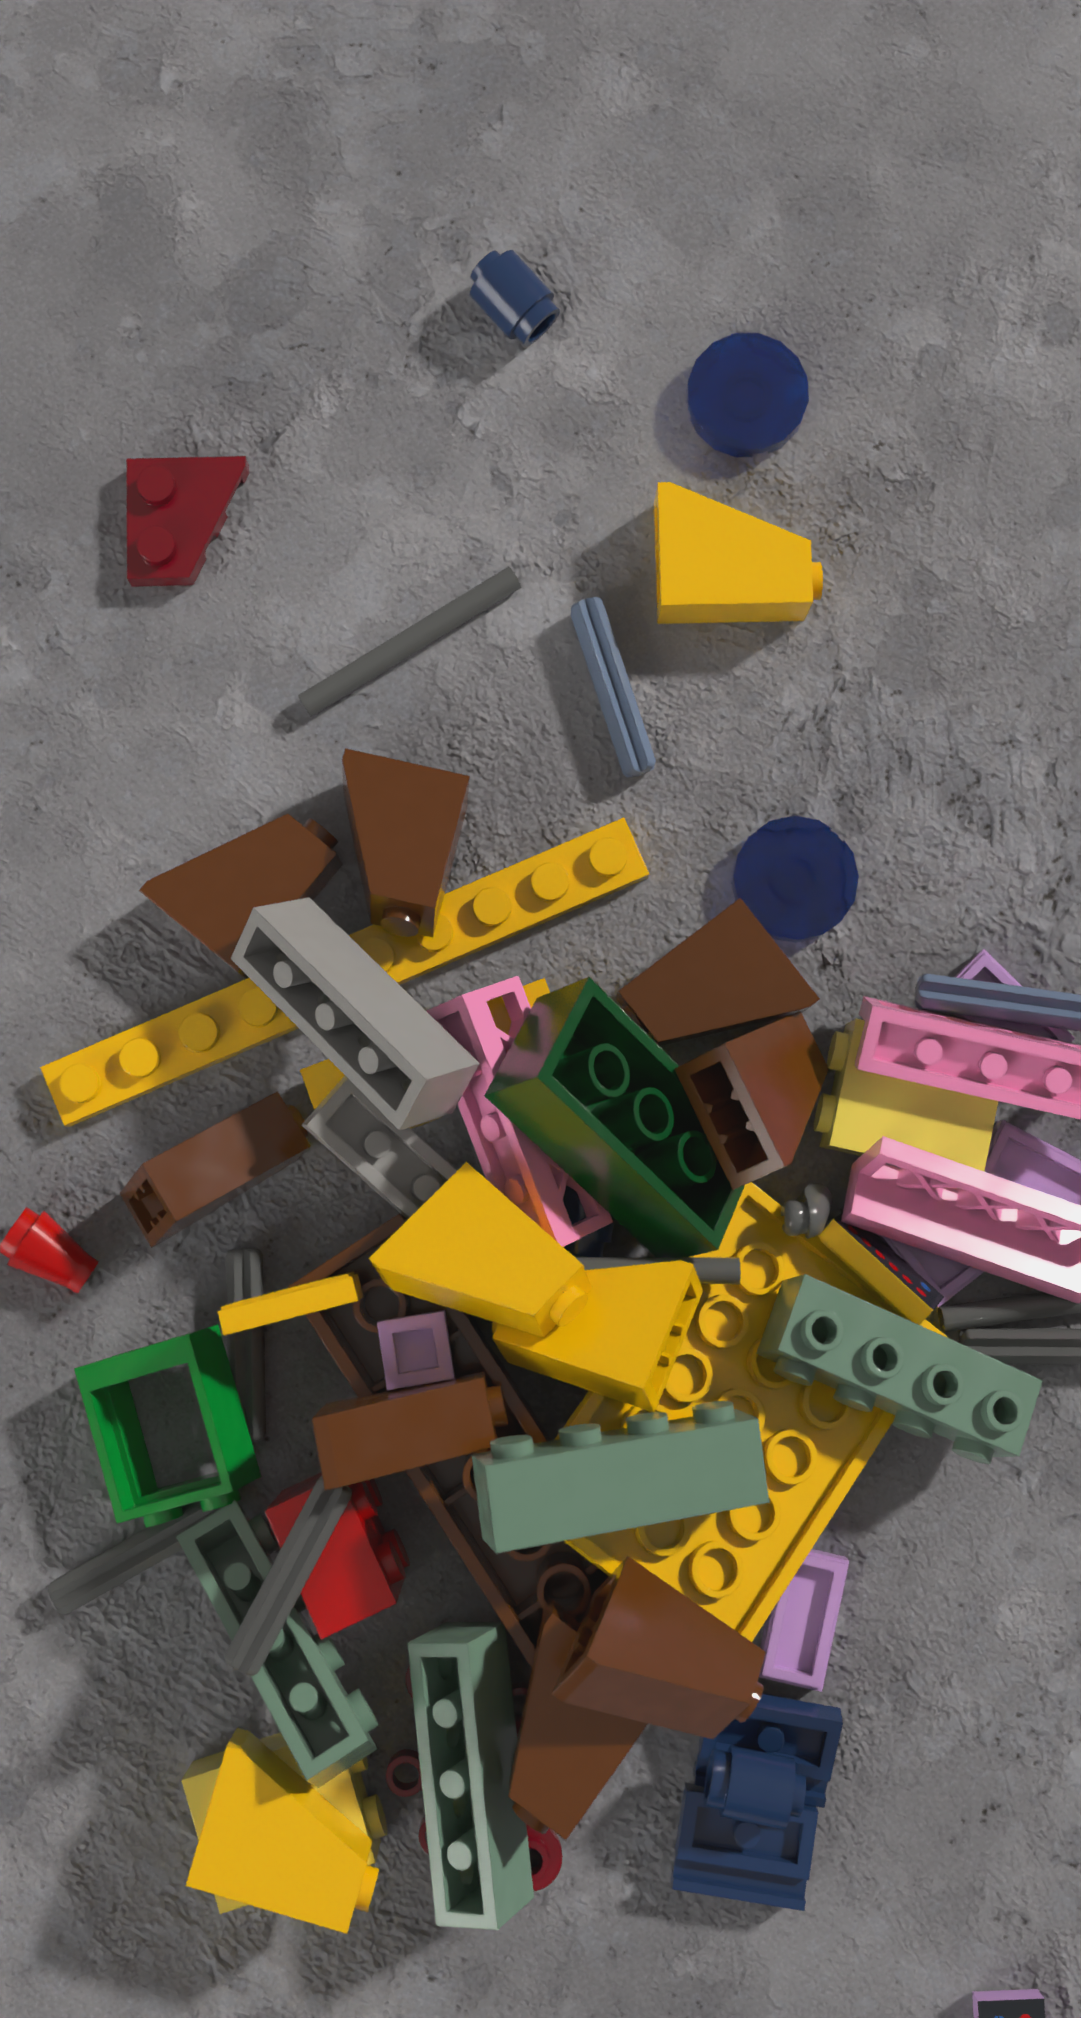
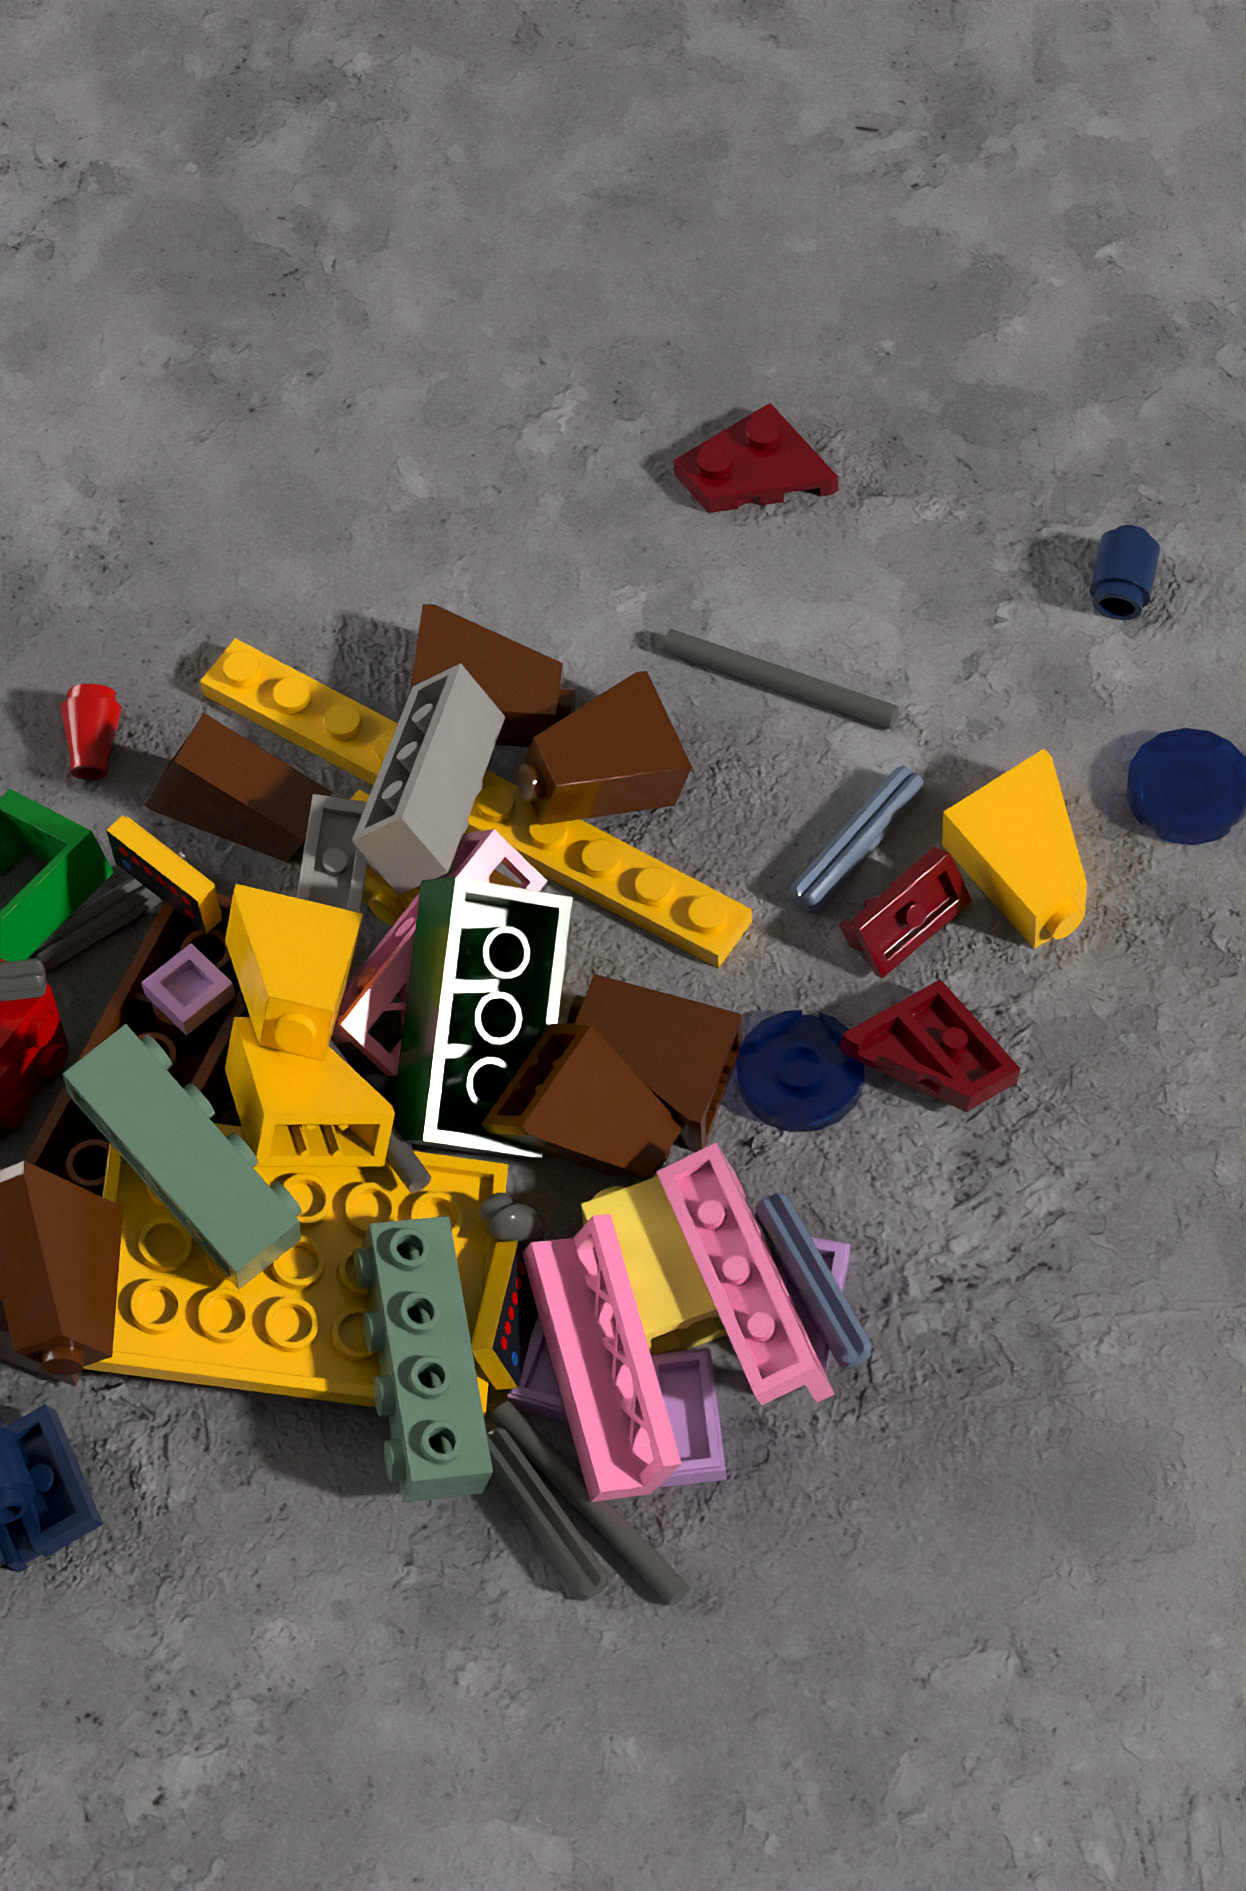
camera: 65 degrees right, 25 degrees down
(406, 1428) = (109, 985): reddish brown slope -> none
(716, 679) = (908, 912): none -> dark red plate
(804, 1623) = (163, 1457): lavender tile -> none
(859, 762) = (934, 1048): none -> dark red wing

